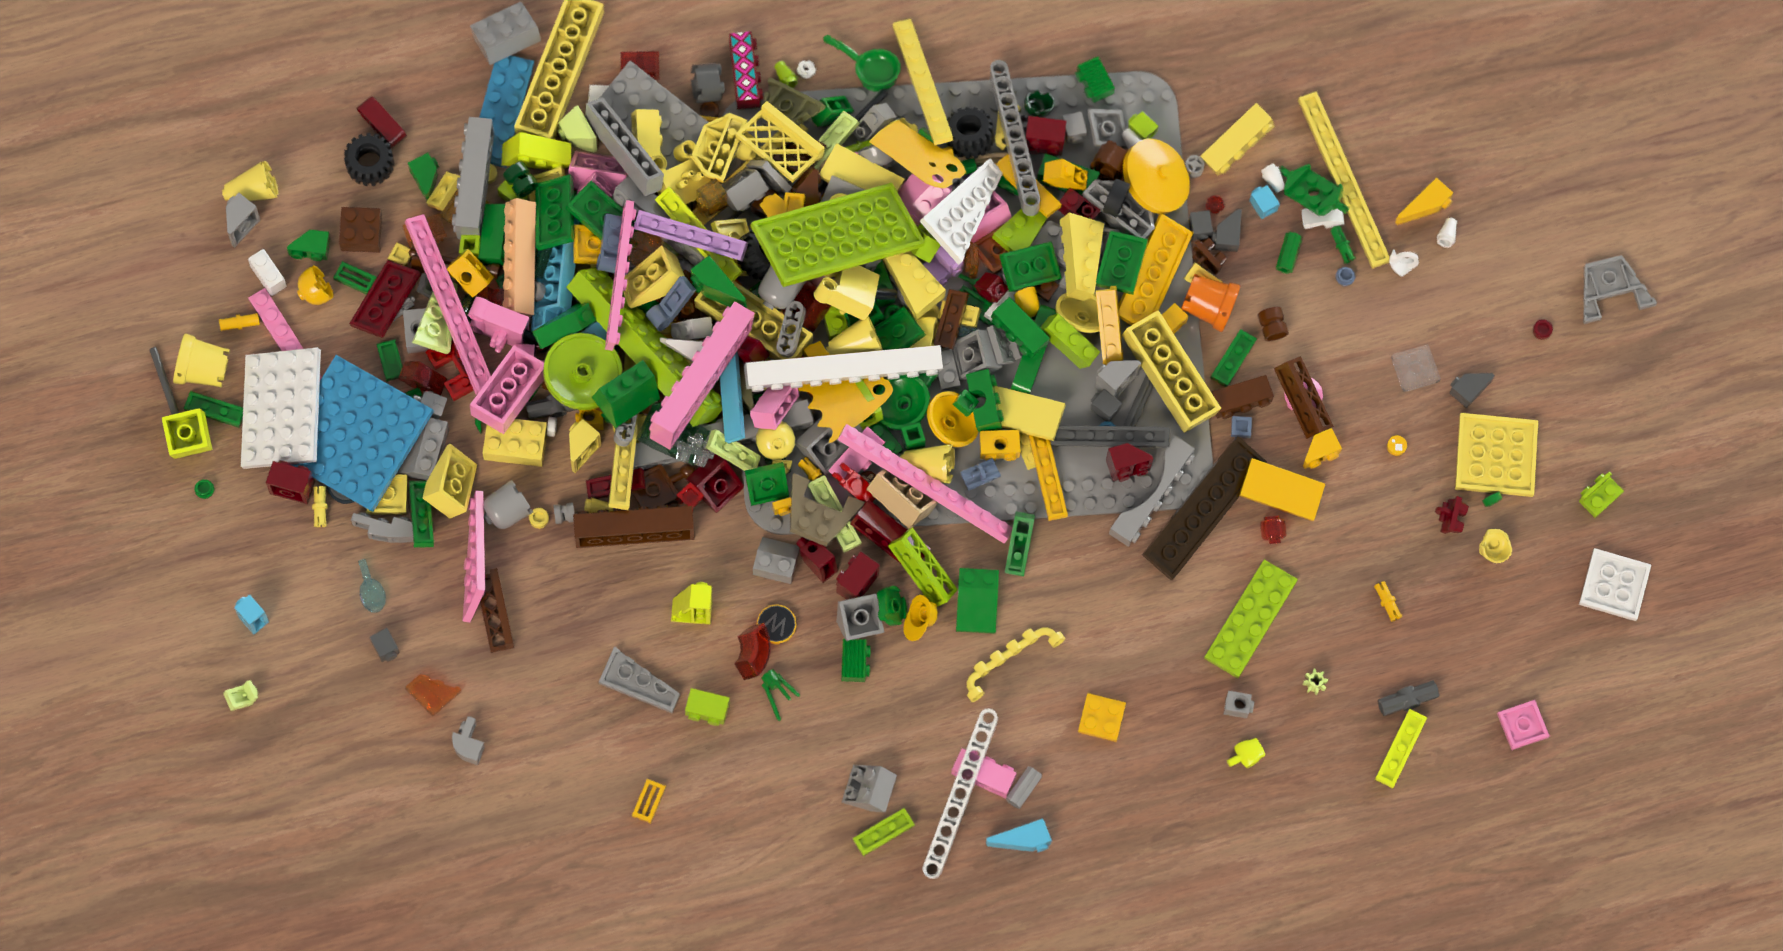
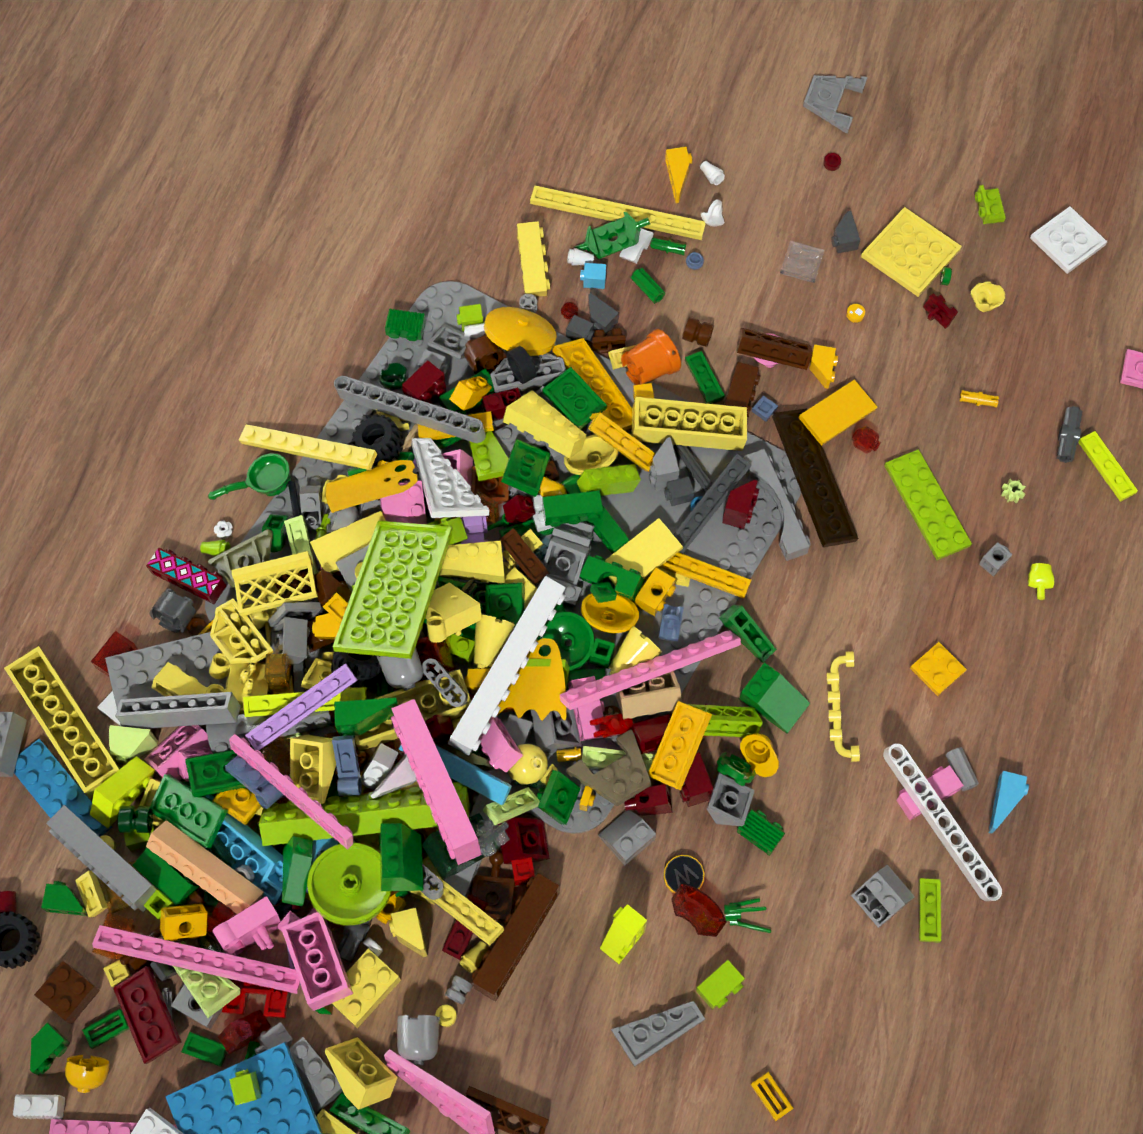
camera: 50 degrees left, 5 degrees down
(380, 404) = (245, 1087): none -> lime brick
(872, 544) = (679, 745): none -> yellow tile

